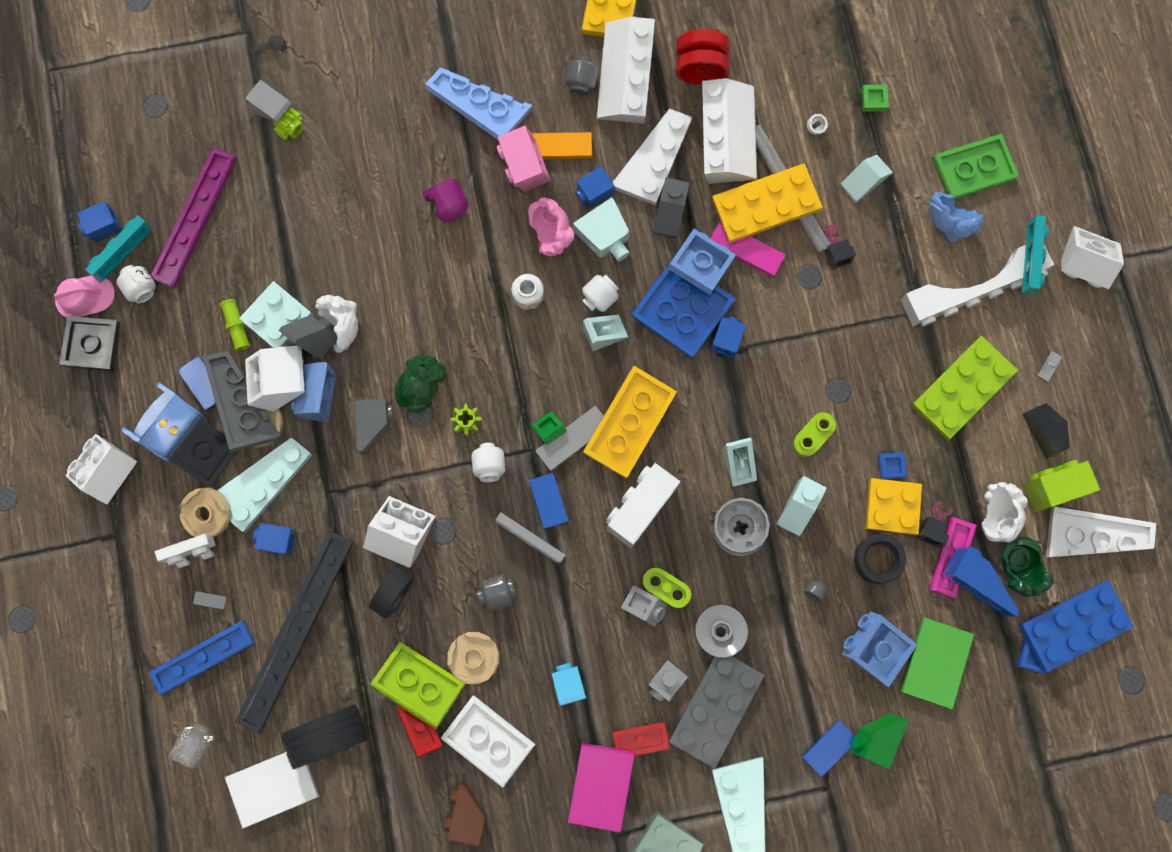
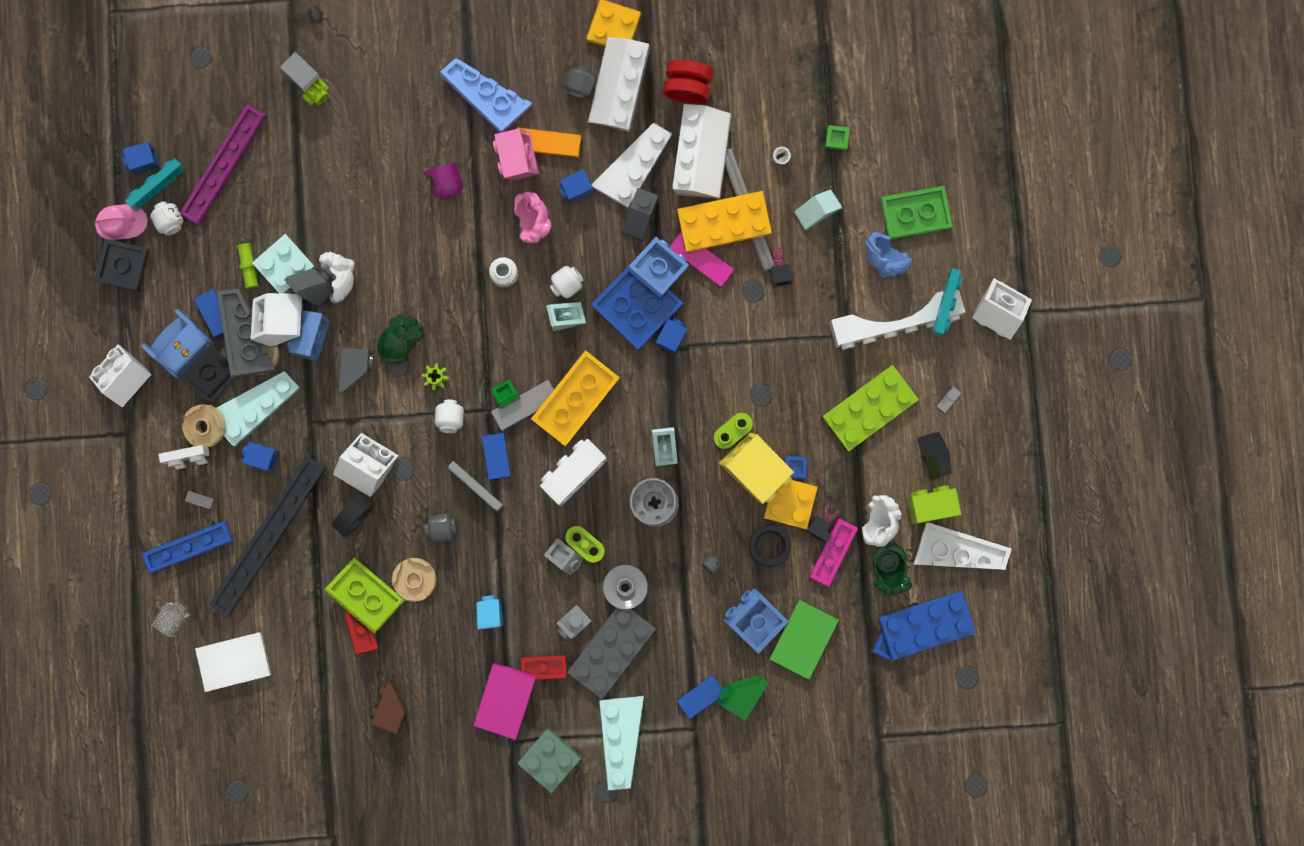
camera: 10 degrees right, 5 degrees up
(324, 736) = (281, 626): black tyre -> none
(488, 741) = (417, 650): white tile -> none
(604, 230) = (578, 226): light aqua torso -> none
(801, 505) = (710, 491): light aqua slope -> none
(851, 470) = (757, 468): none -> light yellow slope
(979, 578) = (848, 572): blue slope -> none

